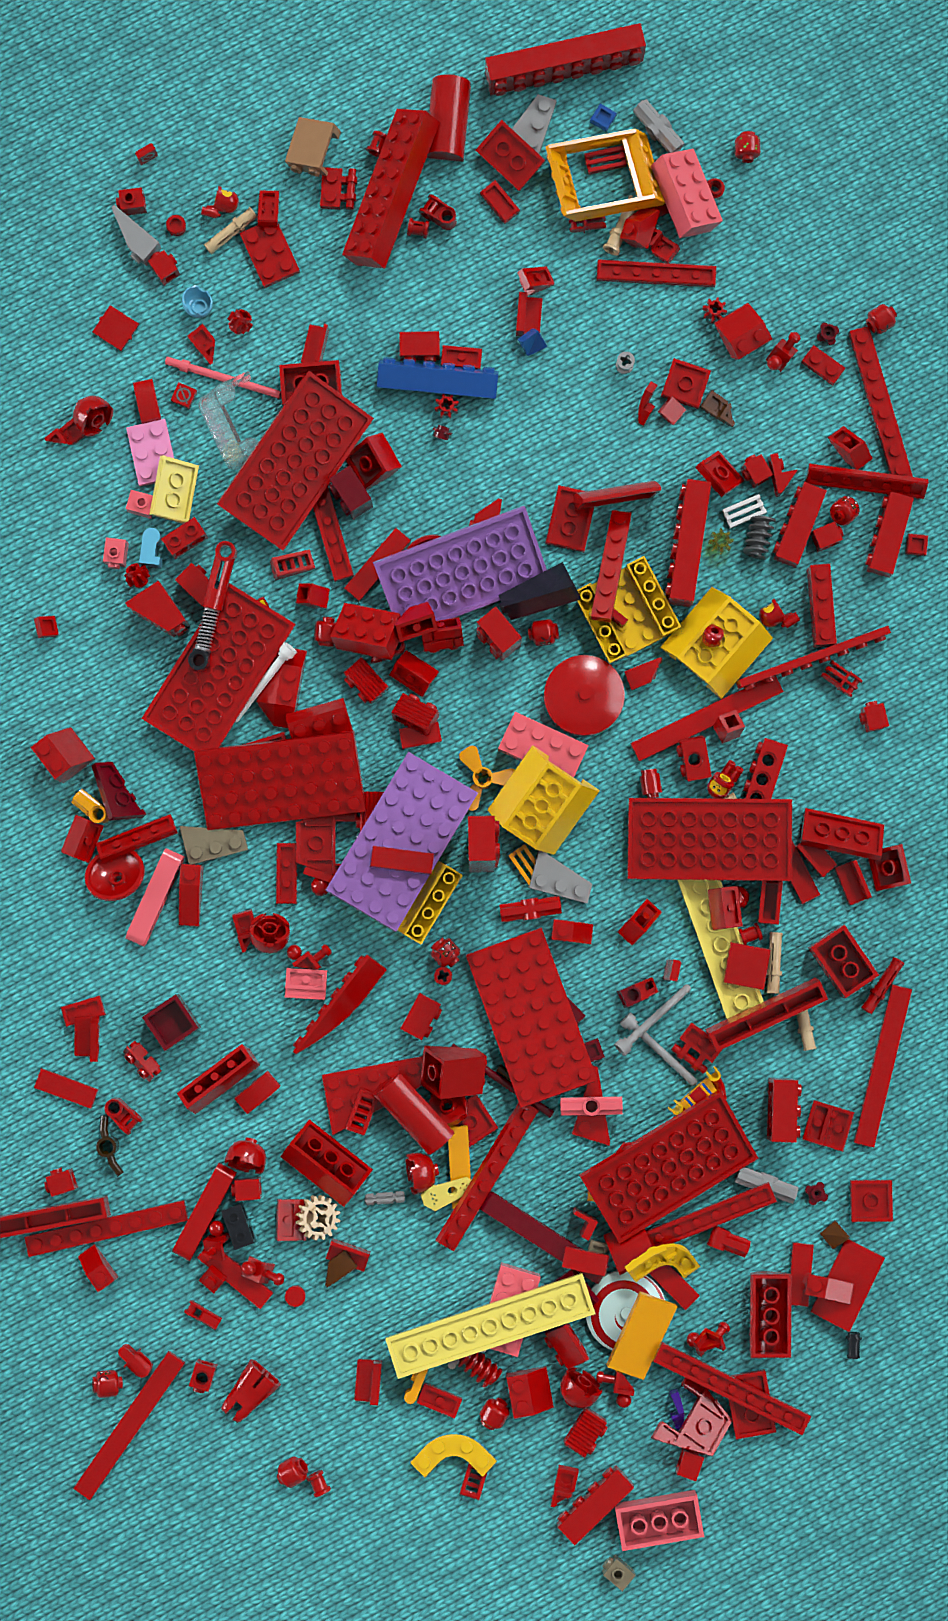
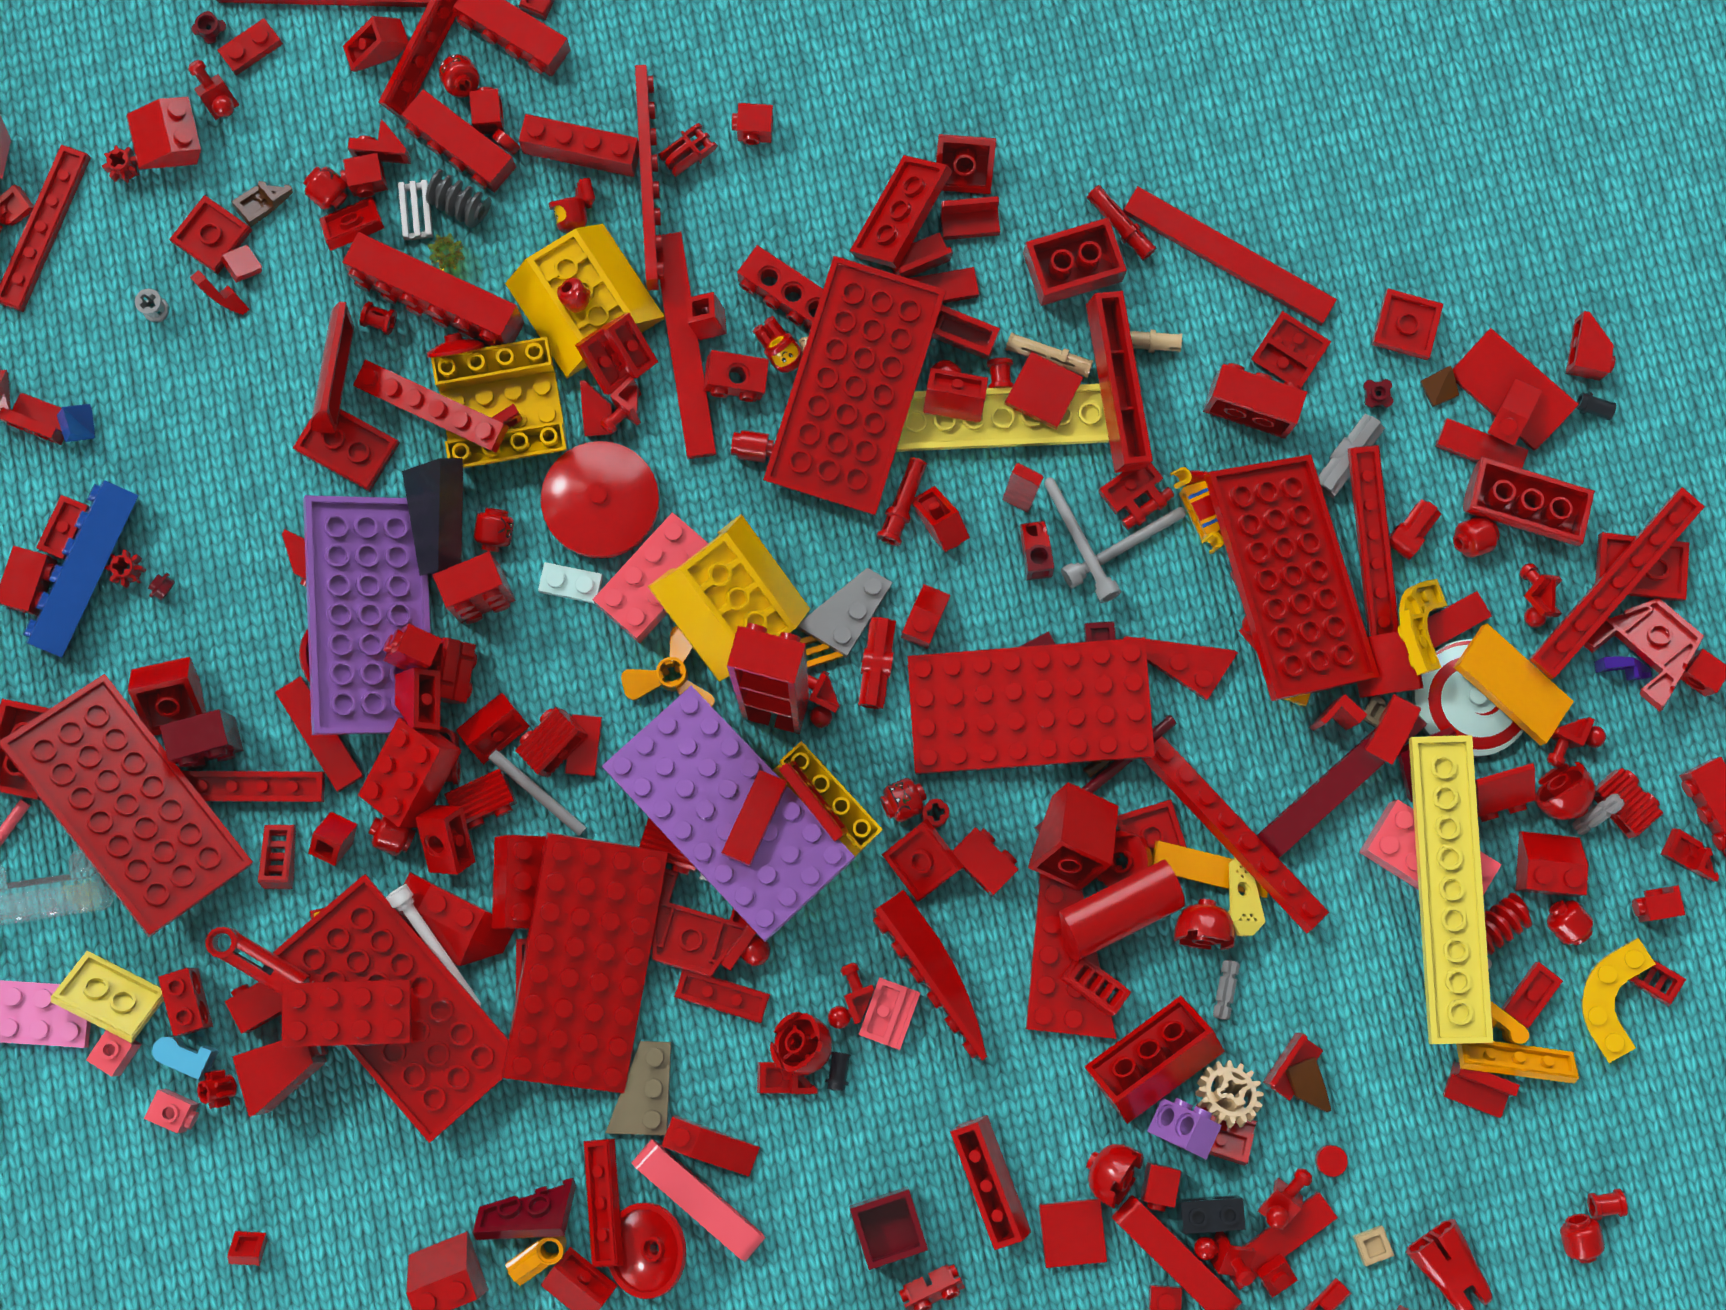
camera: 80 degrees left, 5 degrees down
(202, 1141) = (1072, 1233): none -> red tile
(204, 642) = (346, 1013): none -> red plate
(249, 1337) = (1373, 1245): none -> tan tile
(257, 1092) = (1025, 1130): red slope -> none
(260, 962) = (838, 1071): none -> black pin
(287, 1193) = (1184, 1127): none -> medium lavender brick
(332, 667) = (445, 839): none -> red brick
(380, 715) = (537, 792): none -> light grey bar
(393, 1402) = (1519, 1061): none -> light orange tile
(409, 976) = (922, 860): none -> red tile
(425, 894) = (813, 800): none -> red tile
(446, 607) = (411, 648): none -> red brick
(497, 880) = (825, 696): none -> red piece
(523, 1470) = (1659, 904): none -> red brick
(524, 693) = (570, 582): none -> light aqua plate
(571, 1414) = (1598, 814): none -> light grey axle
(577, 1106) = (1181, 640): coral piece -> none
(634, 893) = (898, 513): none -> red pin
(656, 569) = (454, 345): none -> red dish
(656, 691) = (626, 402): none -> red piece
(662, 511) = (378, 318): none -> red bush
(683, 676) = (616, 353): none -> red slope
(736, 1285) = (1476, 537): none -> red head
(739, 448) = (325, 188): none -> red head
(808, 557) = (506, 142): none -> red tile
(891, 1331) = (1589, 349): none -> red slope

